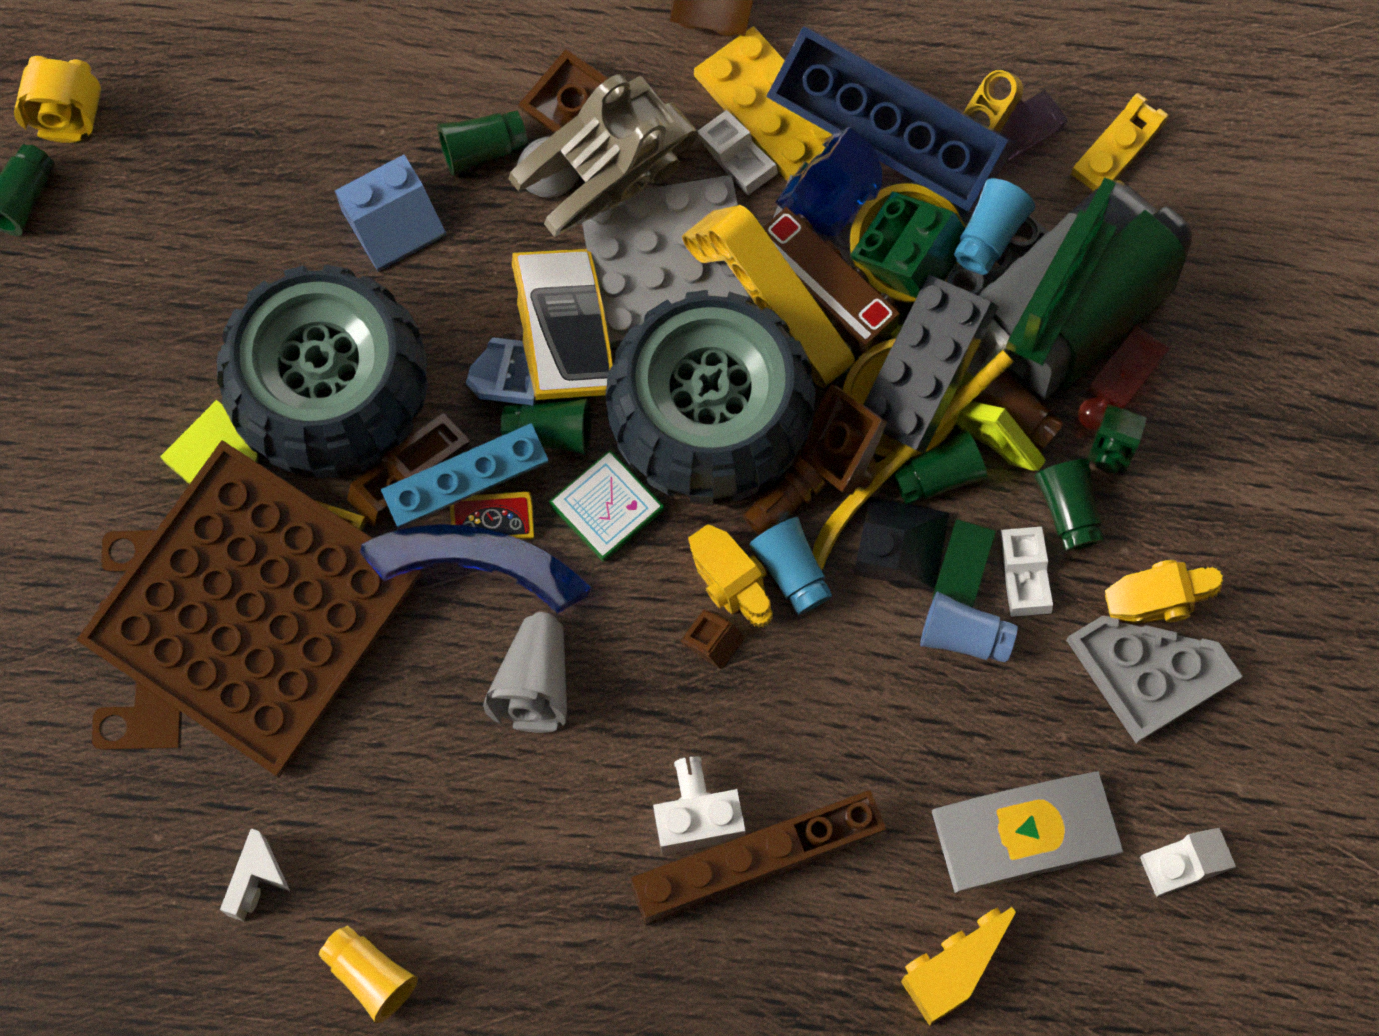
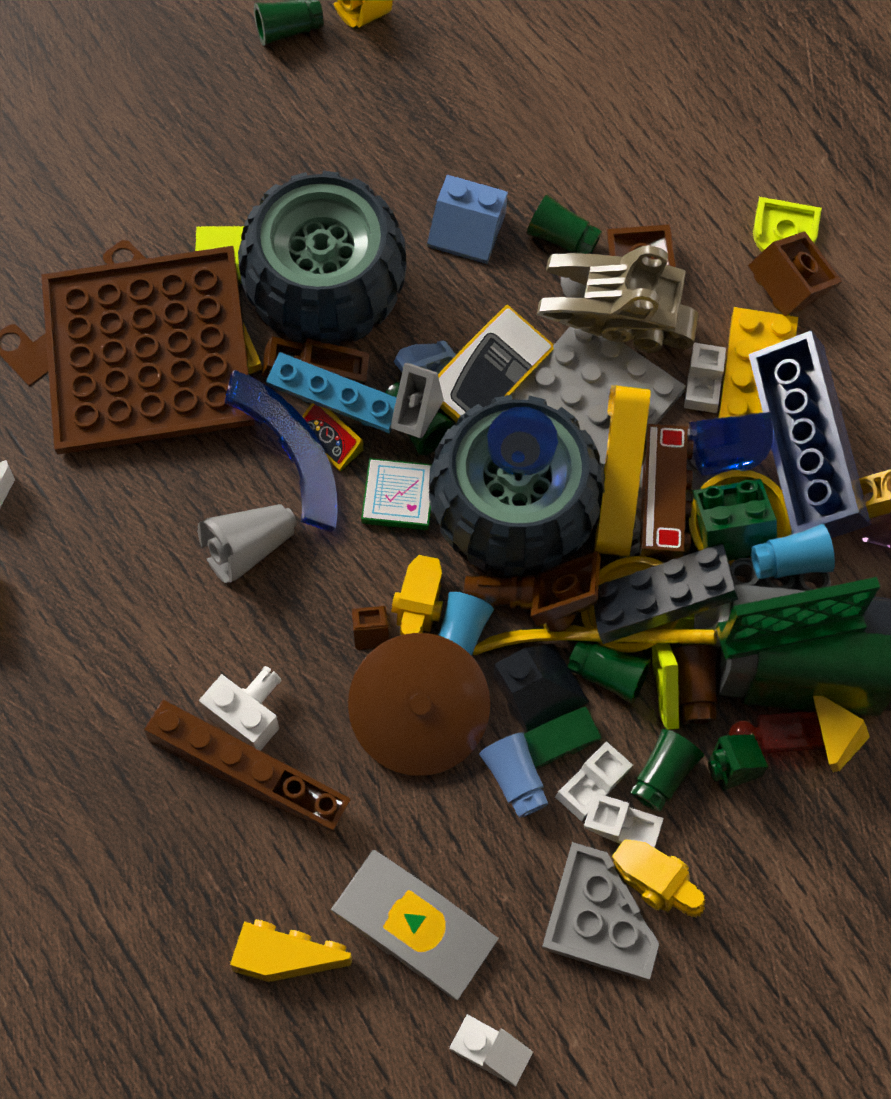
camera: 45 degrees right, 5 degrees down
(548, 412) = (416, 400): none -> light grey slope
(695, 352) = (522, 440): none -> clear blue tile
(831, 657) = (419, 704): none -> reddish brown dish
(1085, 579) = (618, 821): none -> white slope
(1167, 333) = (841, 732): none -> yellow slope

